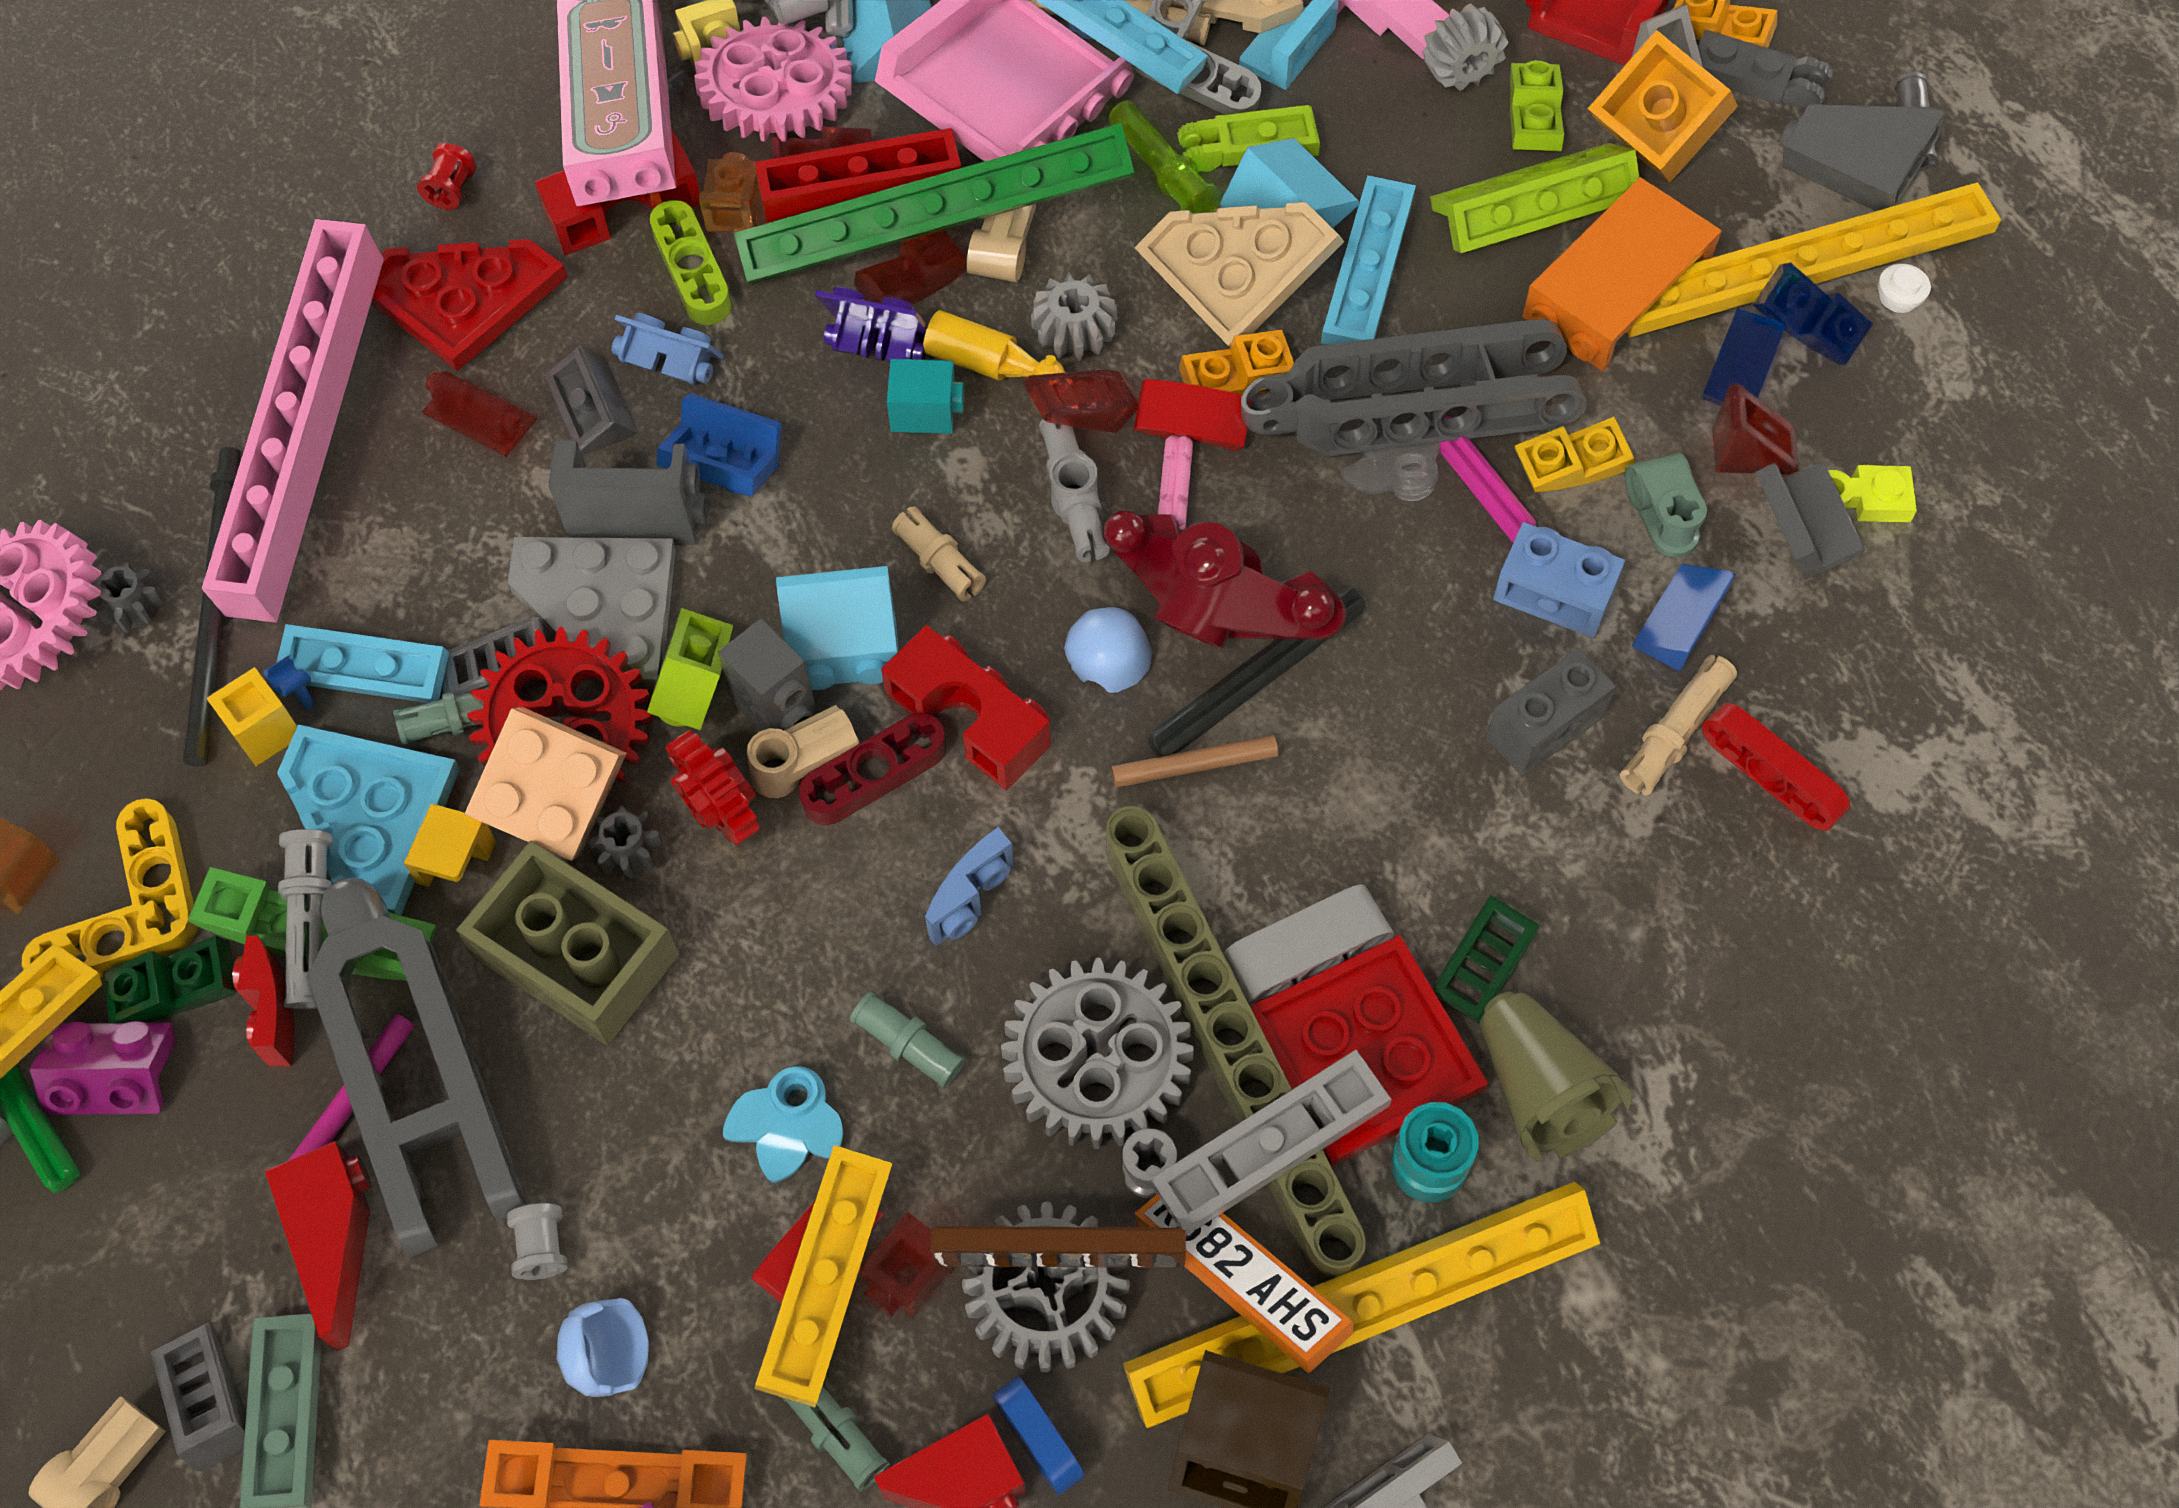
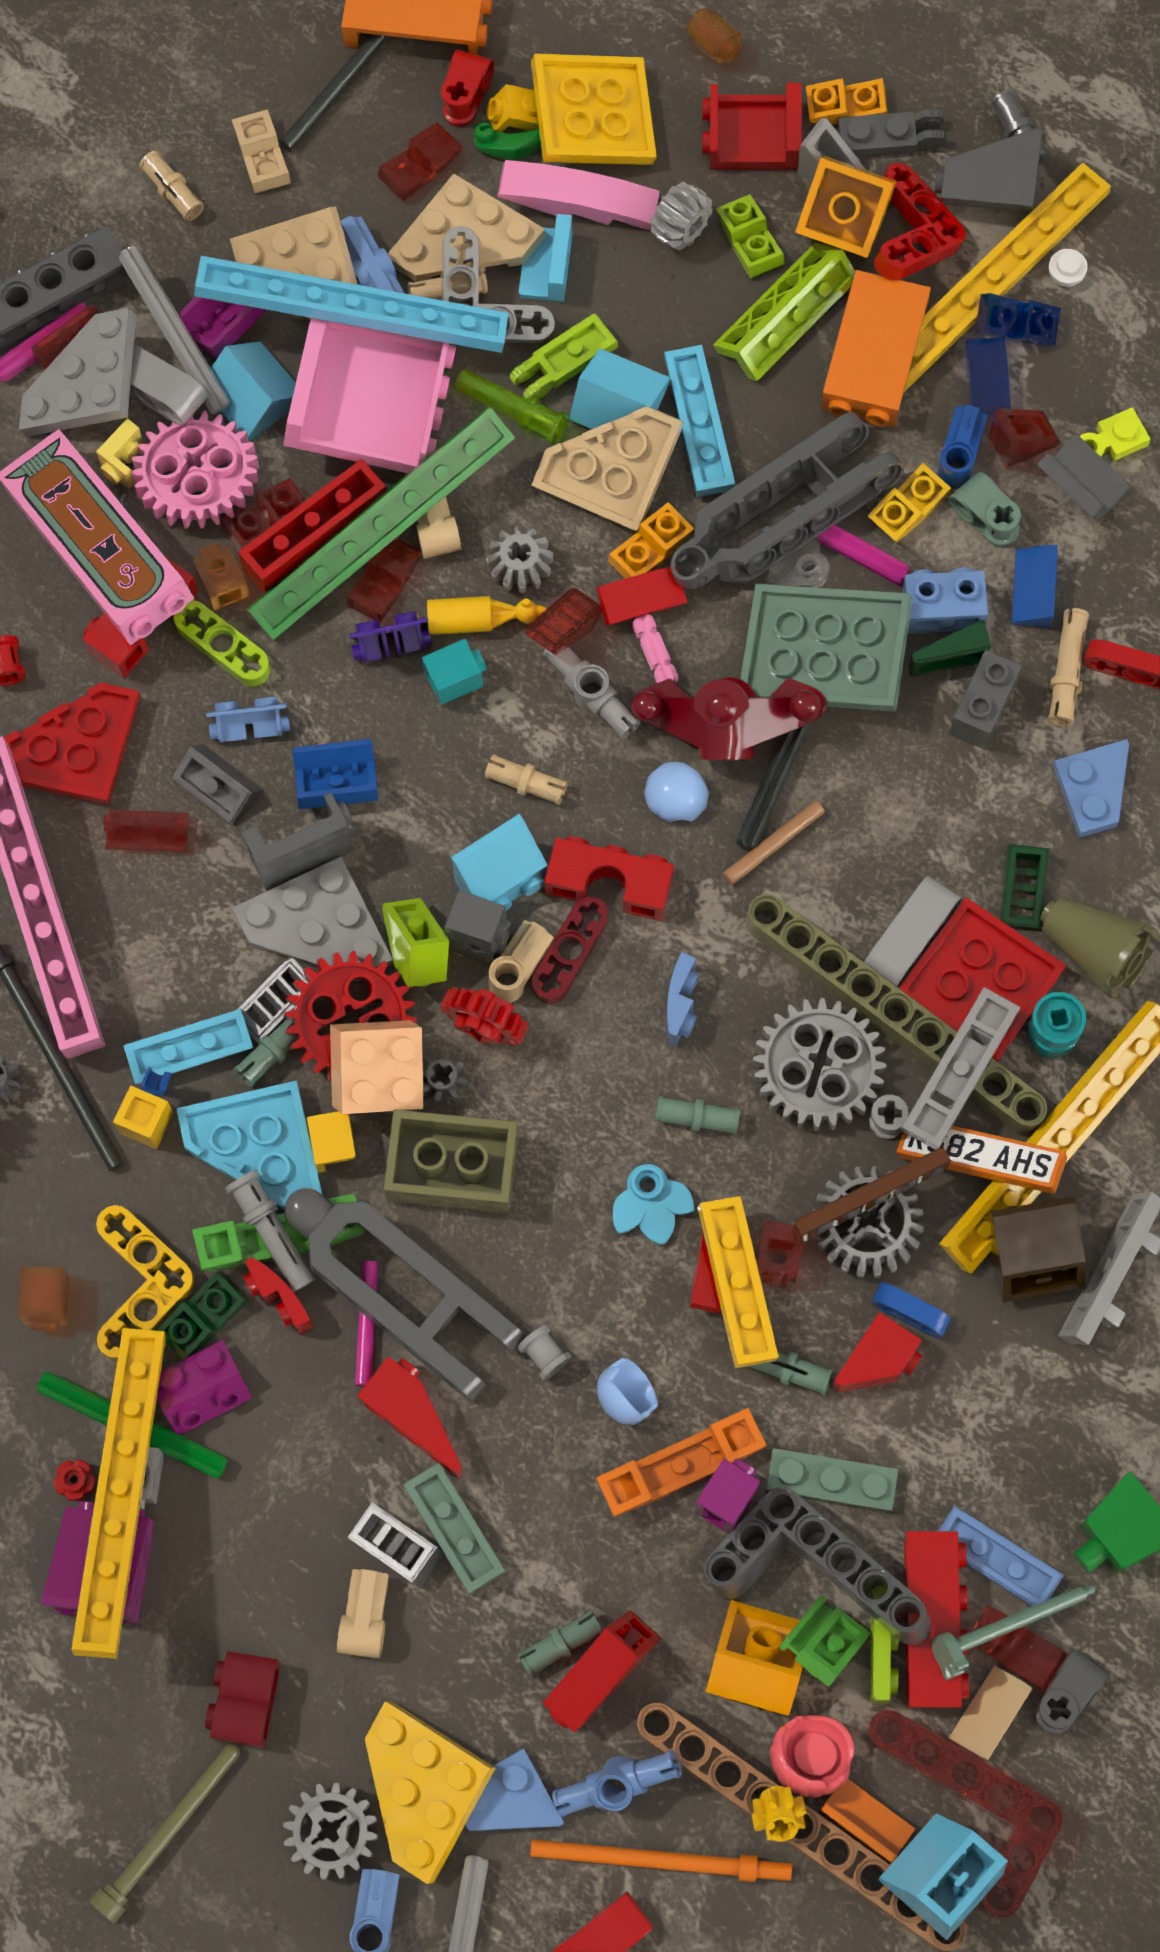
camera: 25 degrees left, 10 degrees up
(1392, 558) = (829, 639): none -> sand green plate
(1534, 637) = (953, 651): none -> dark green slope
(1641, 882) = (1094, 786): none -> medium blue wing
(1672, 416) = (962, 445): none -> blue piece
(1759, 184) = (937, 232): none -> red beam

